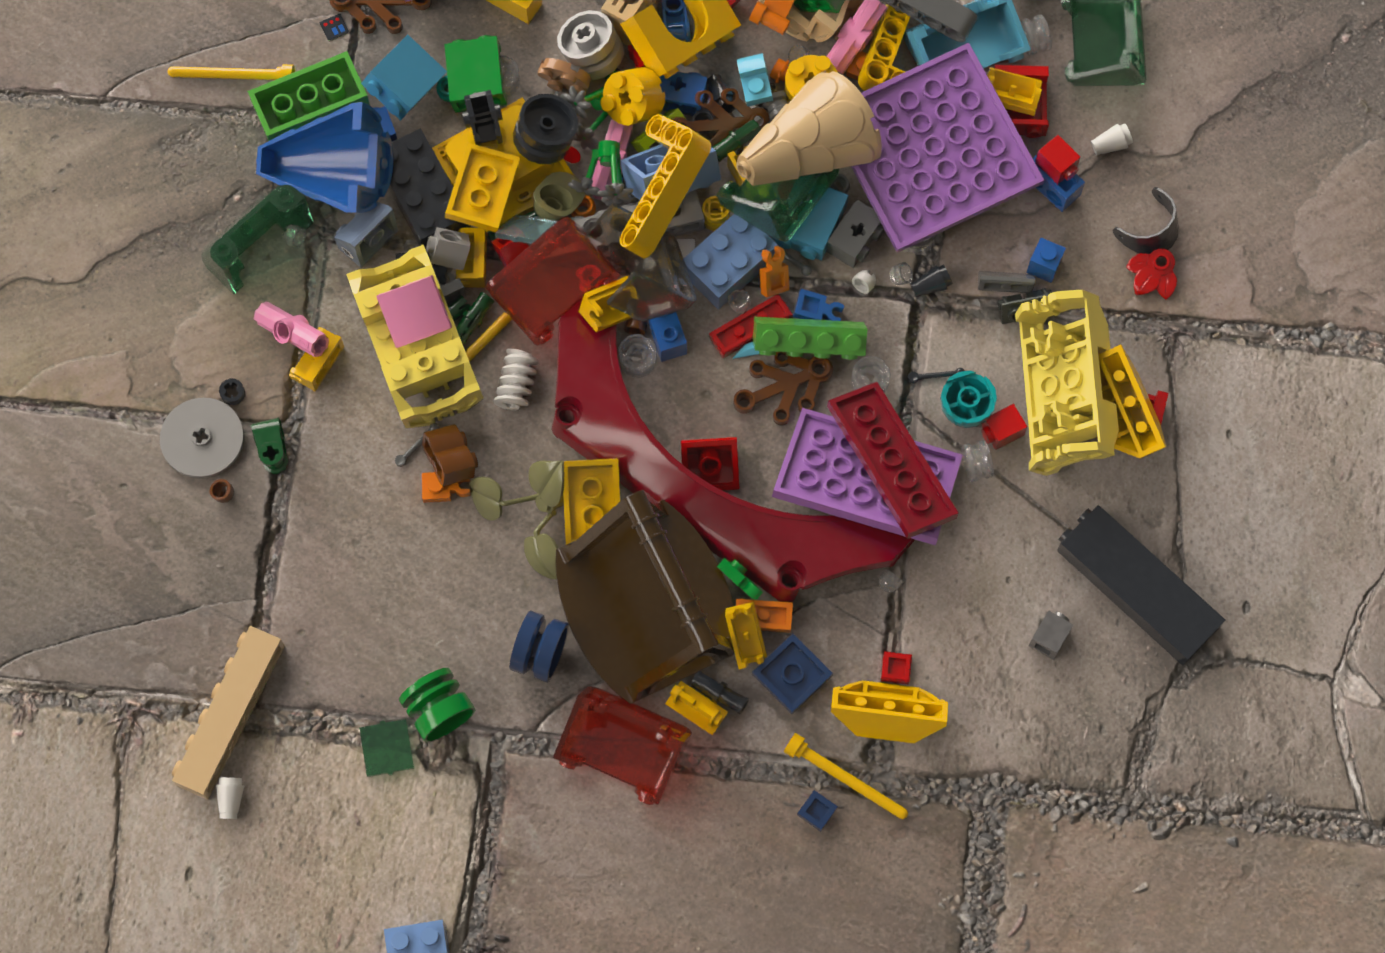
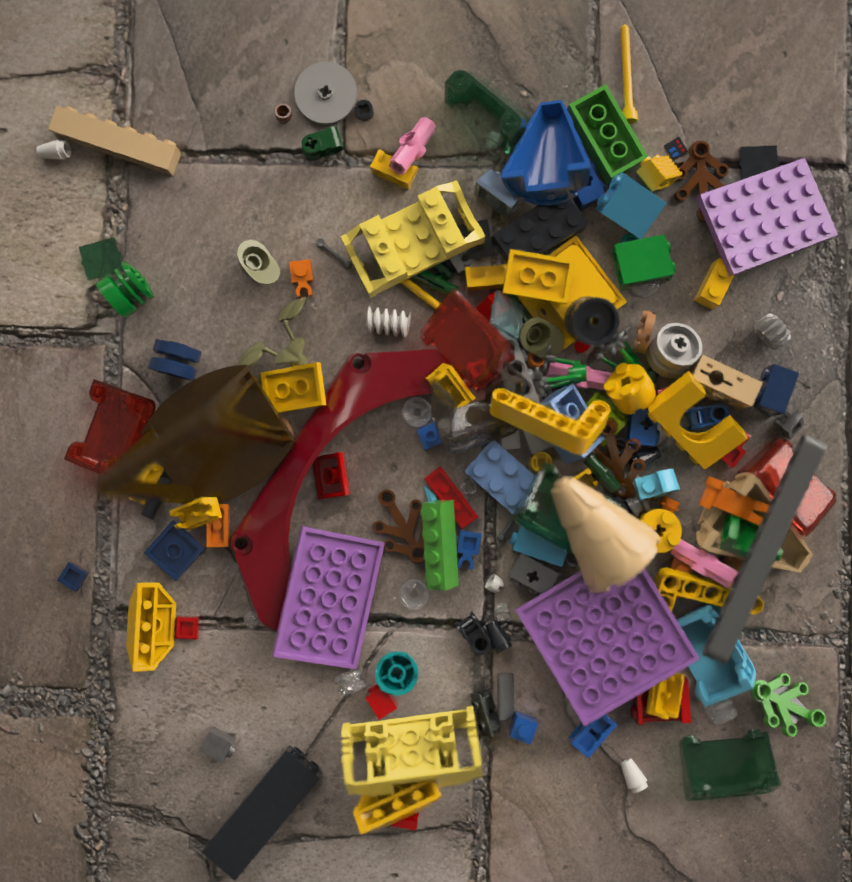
camera: 90 degrees right, 15 degrees up
(365, 43) = (658, 172): none -> yellow brick
(414, 311) = (424, 234): bright pink slope -> none
(420, 536) = (257, 262): none -> piece
(448, 248) = (487, 257): light grey brick -> none
(449, 454) = (322, 277): reddish brown brick -> none
(483, 117) = (598, 269): black hinge -> none
(736, 573) = (241, 504): green plate -> none
(775, 276) = (491, 514): orange plate -> none
(798, 748) = (118, 560): yellow piece -> none
(892, 460) = (336, 617): dark red plate -> none
(913, 376) = (420, 626): black hinge -> none
(922, 312) = (473, 632): none -> black piece
(1058, 160) = (602, 737): red brick -> none
(1151, 276) = (518, 811): red plate -> none
(1163, 239) = (545, 816): black piece -> none

